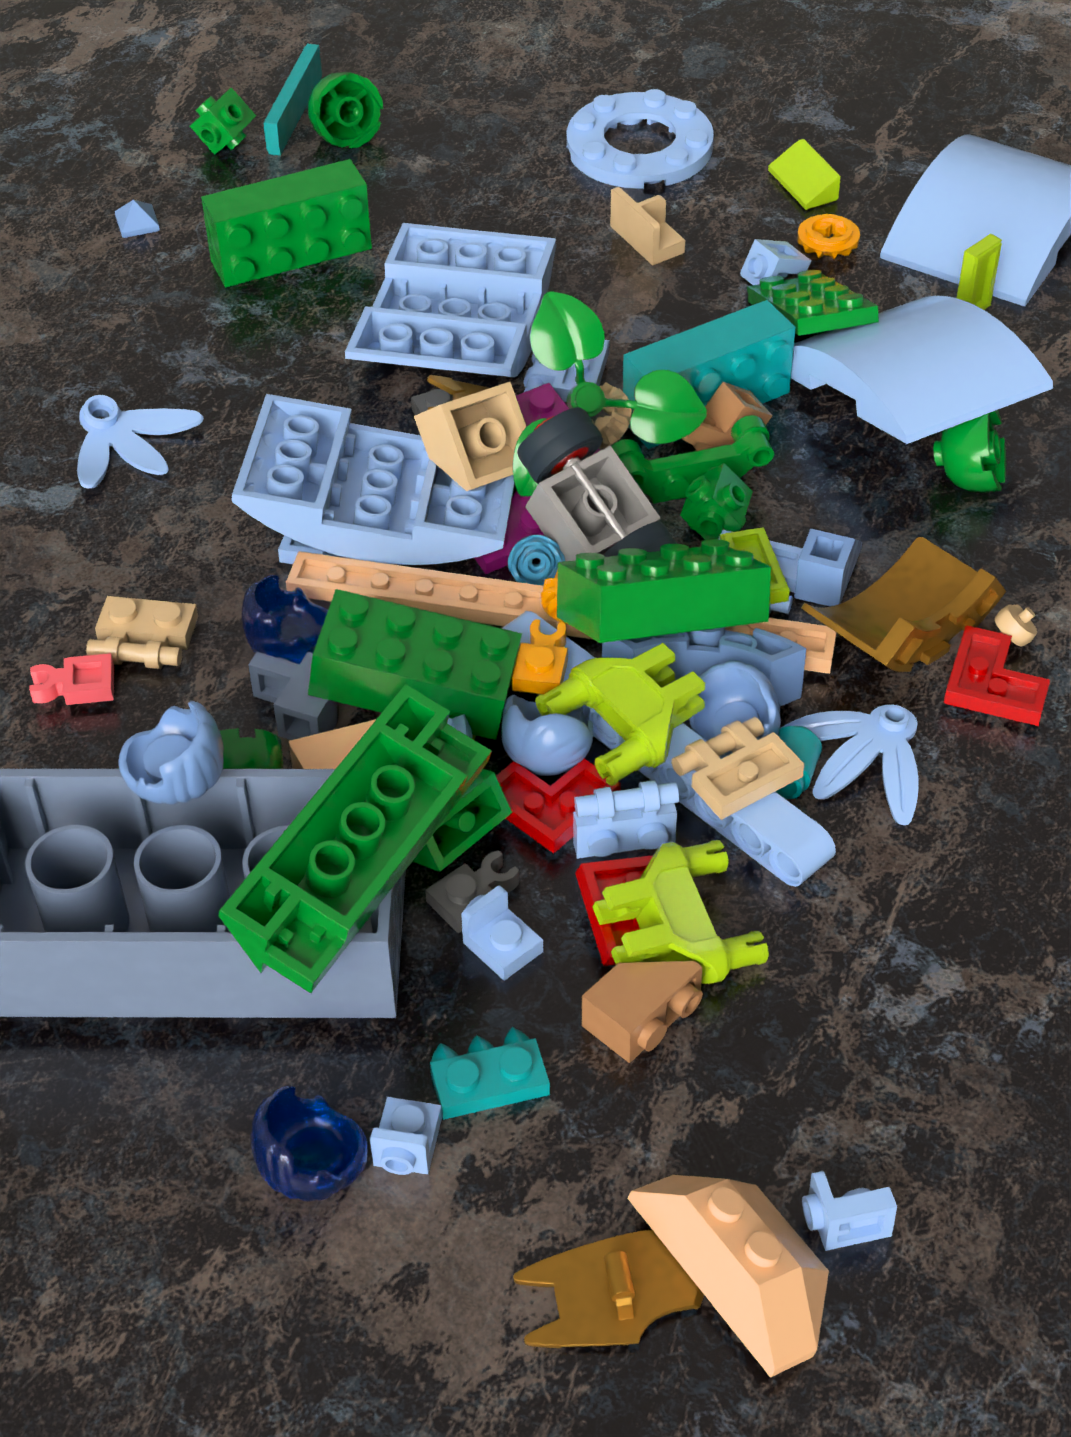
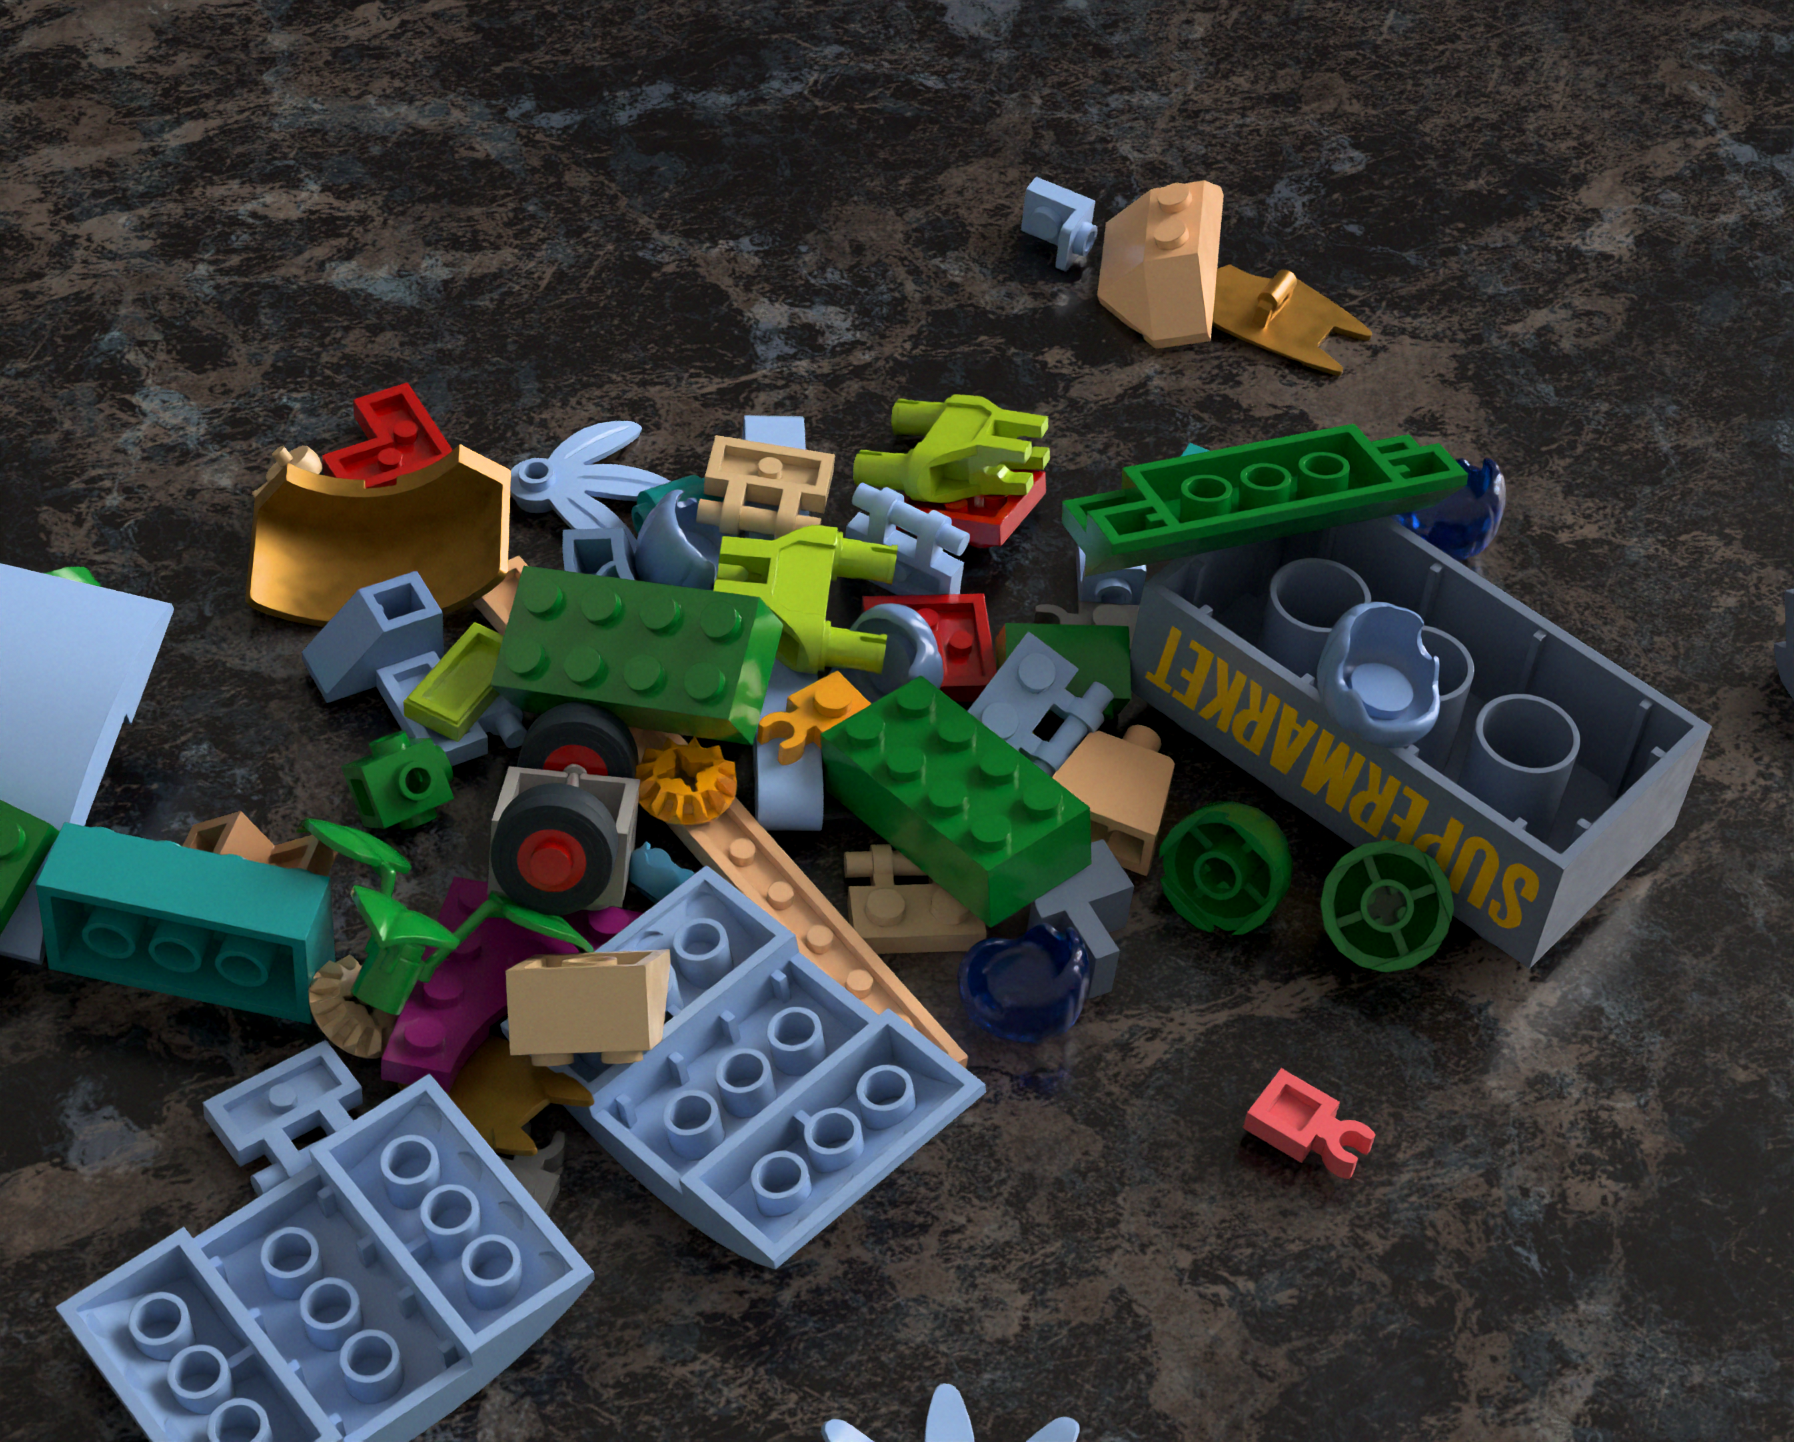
camera: 145 degrees left, 0 degrees up
(144, 631) = (1162, 1159): tan plate -> none
(639, 1002) = (1076, 434): medium nougat slope -> none
(670, 476) = (435, 872): green plate -> none

